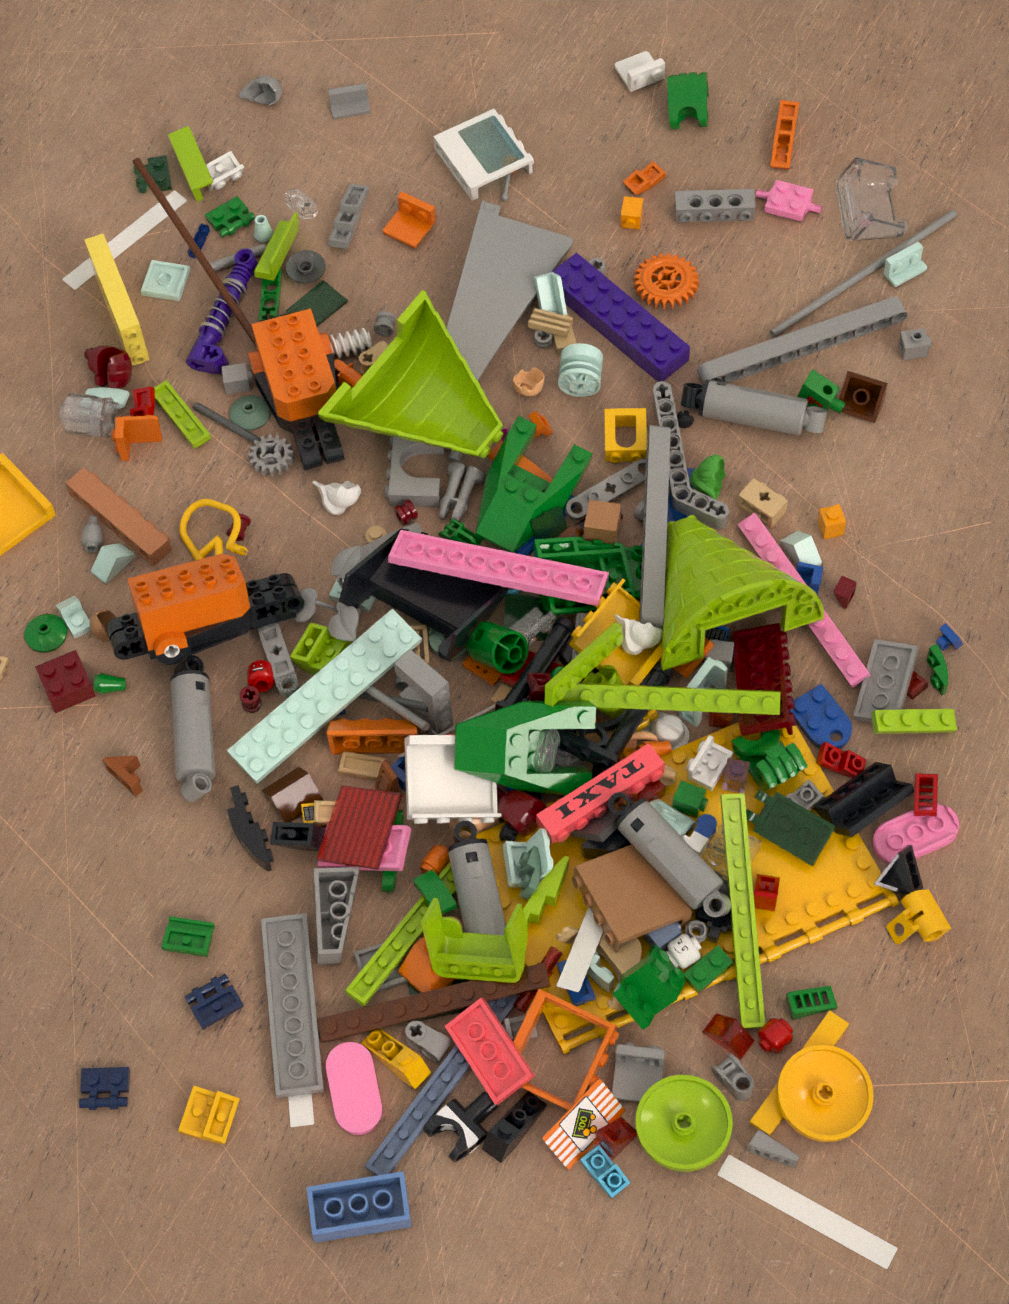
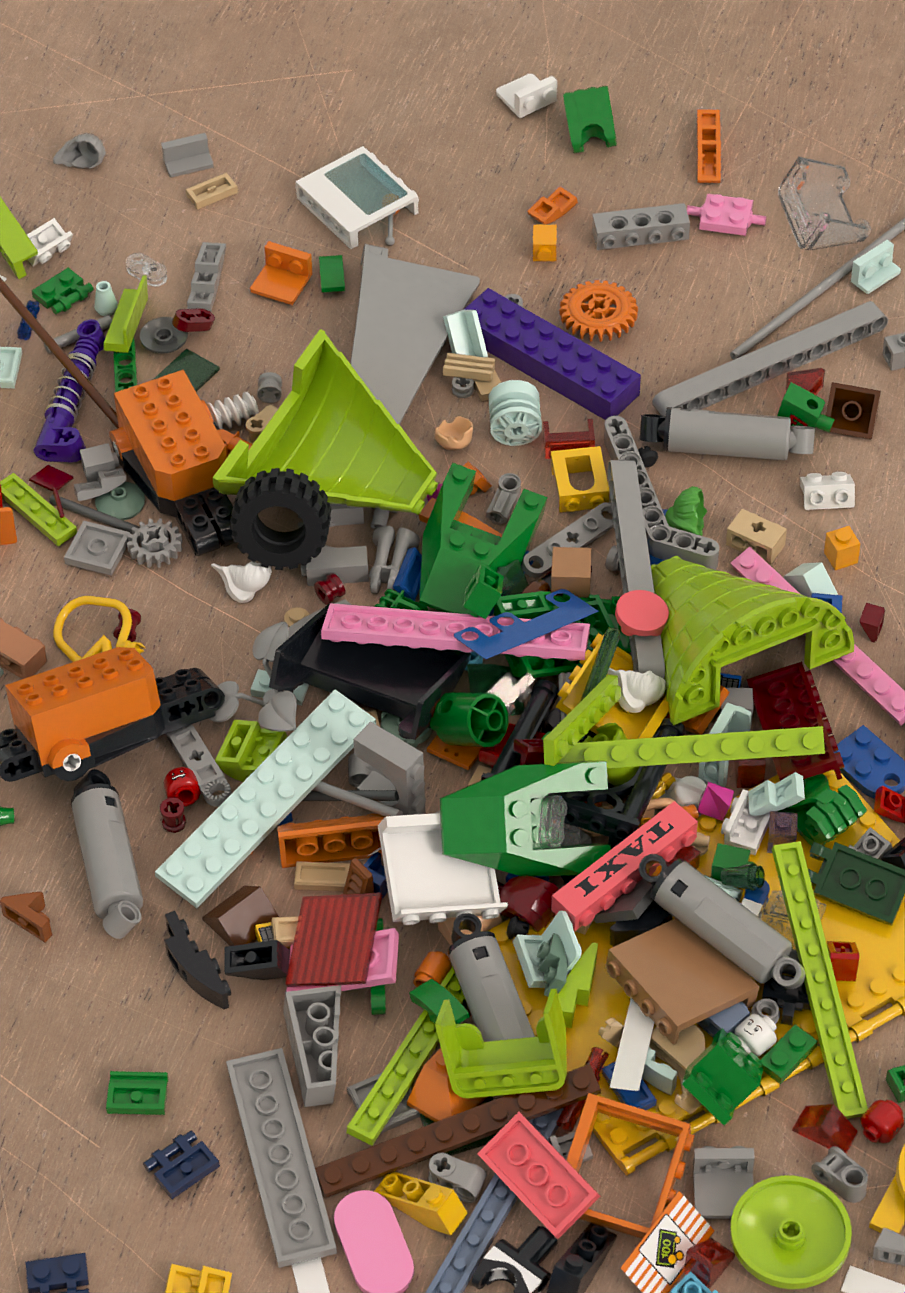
camera: 10 degrees left, 10 degrees down
(197, 388) = (53, 480): none -> dark red piece
(224, 454) = (97, 548): none -> light grey plate
(241, 395) = (106, 482): none -> light grey slope
(331, 256) = (193, 320): none -> dark red beam
(365, 138) = (215, 191): none -> tan tile
(375, 433) = (273, 546): none -> black tyre
(451, 223) = (332, 273): none -> green slope
(471, 508) = (409, 574): none -> blue tile
(525, 535) = (483, 592): none -> green brick
(552, 574) = (522, 632): none -> blue piece
(560, 447) = (504, 499): none -> light grey piece
(612, 609) = (602, 660): none -> clear green axle
(621, 398) = (567, 440): none -> clear red panel
(651, 570) = (641, 613): none -> coral tile
(686, 741) = (715, 801): none -> dark pink slope
(696, 813) = (744, 876): none -> clear green cone
(734, 745) = (776, 796): none -> light aqua slope
(828, 366) = (810, 380): none -> clear red slope
(829, 467) = (828, 491): none -> white bracket

